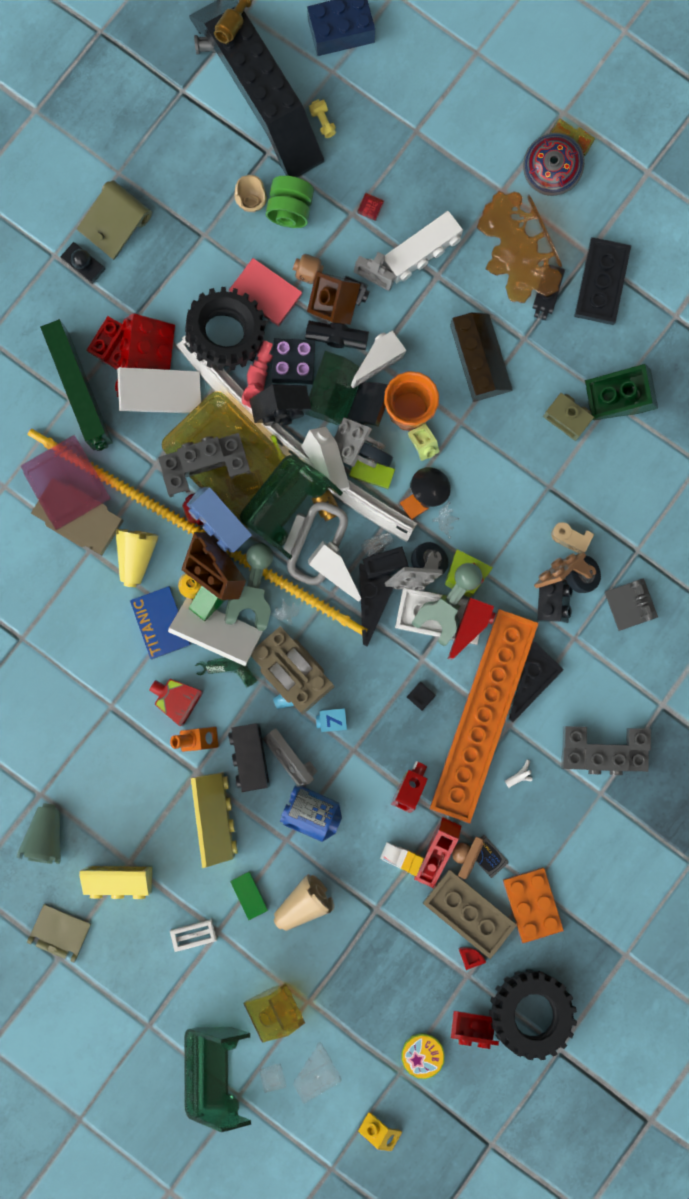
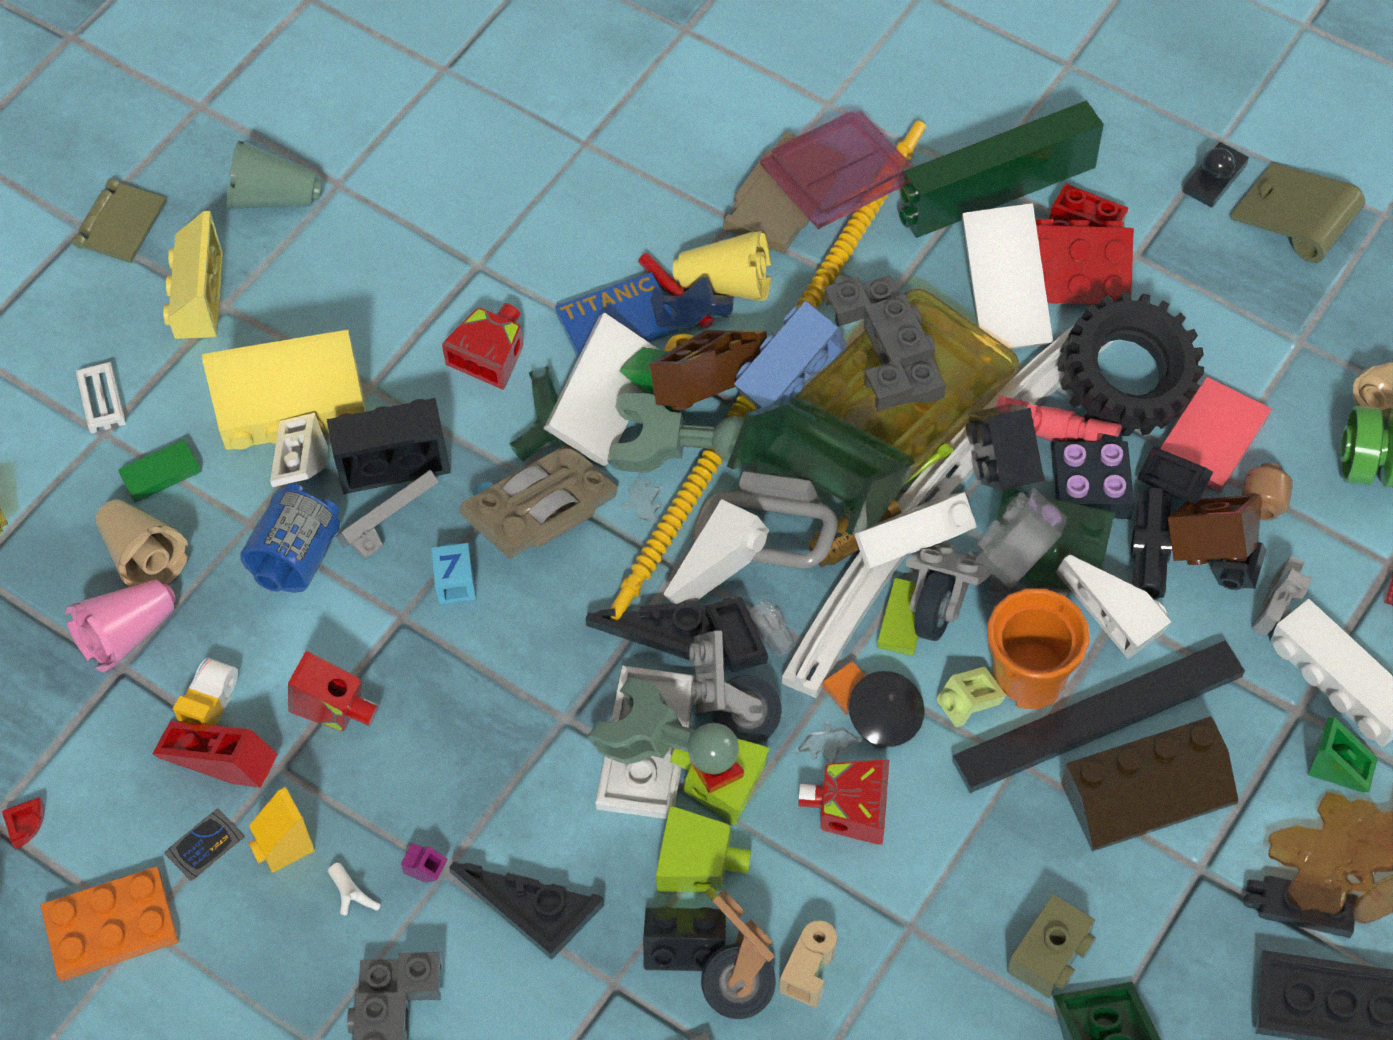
camera: 90 degrees right, 25 degrees down
(142, 587) = (668, 282): none -> red bar
(160, 577) = (691, 306): none -> dark blue bracket
(194, 739) = (420, 368): orange bracket -> none
(257, 810) = (298, 450): none -> white slope
(298, 315) = (1175, 475): none -> black tile
(345, 401) = (1021, 538): none -> clear brick
(355, 910) = (119, 621): none -> bright pink cone
(421, 696) = (498, 717): black tile -> none
(434, 368) = (1097, 716): none -> black tile
(467, 856) = (204, 803): medium nougat tile -> none
(469, 914) = (100, 811): dark tan plate -> none
(470, 258) = (1342, 758): none -> green slope
(473, 622) = (632, 782): red slope -> none
(482, 509) = (851, 799): none -> red torso
(483, 716) = (468, 820): orange plate -> none
(492, 813) = (279, 833): none -> yellow slope
(508, 735) = (423, 863): none -> magenta piece
(510, 591) = (697, 854): none -> lime torso

